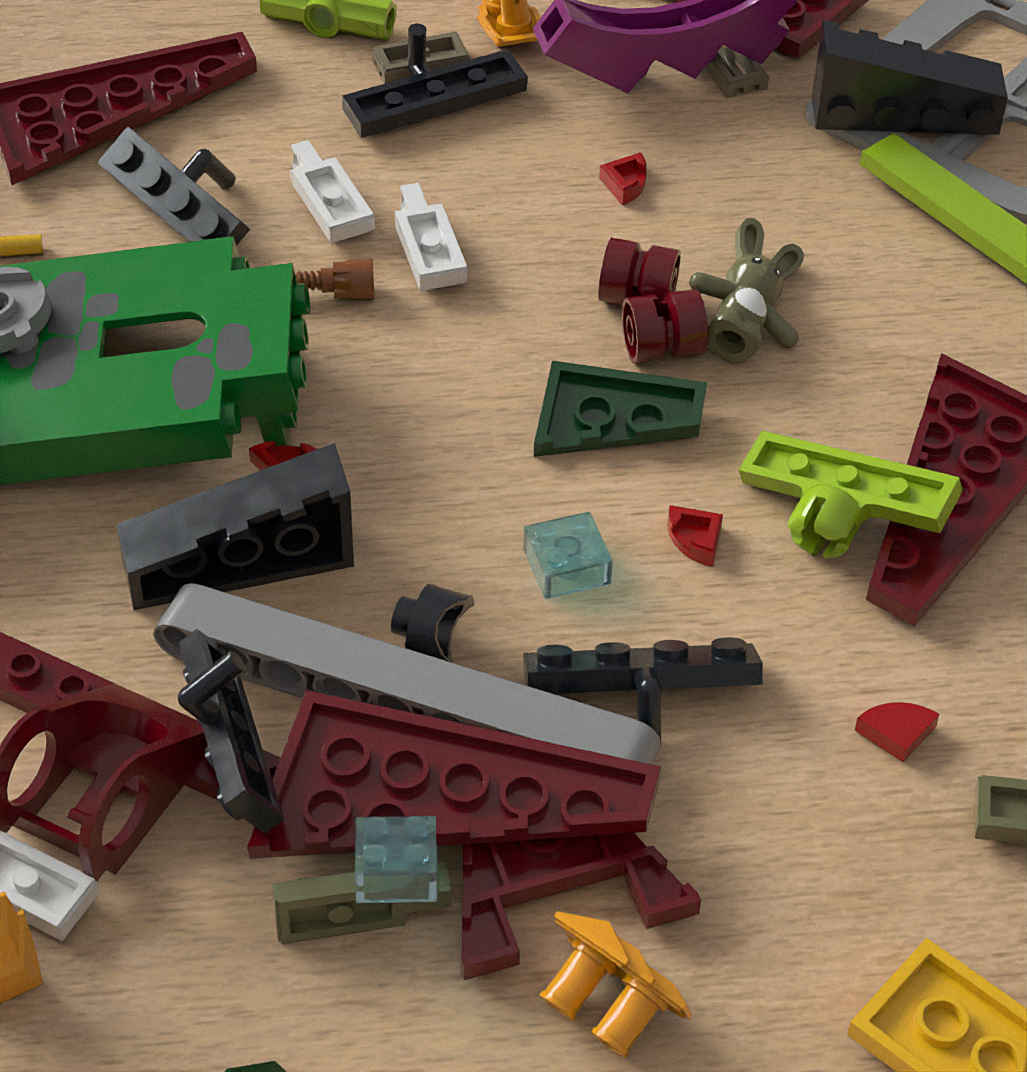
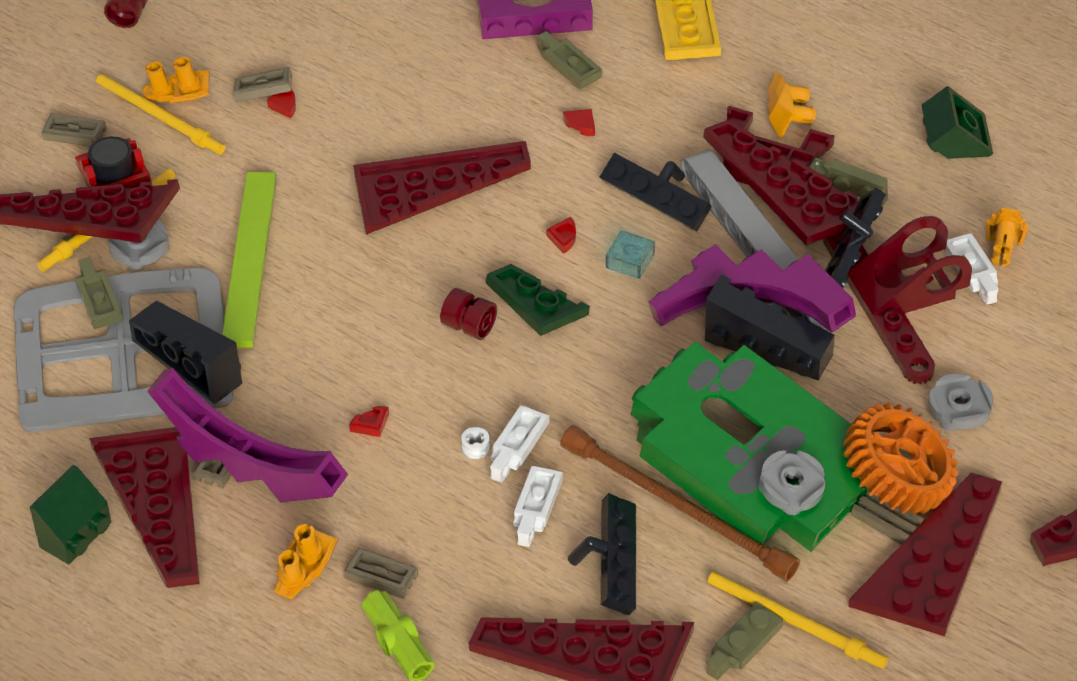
camera: 135 degrees left, 0 degrees up
(308, 572) = (799, 287): none -> magenta arch
(396, 859) = (833, 159): clear light blue piece -> none
(430, 620) = (726, 240): black piece -> none
(432, 91) = (407, 532): black plate -> none
(477, 219) = (474, 435): none -> white bush
(635, 272) = (446, 345): dark red wheel -> none
(748, 296) = (400, 308): olive animal -> none
(845, 490) = (493, 193): lime plate -> none

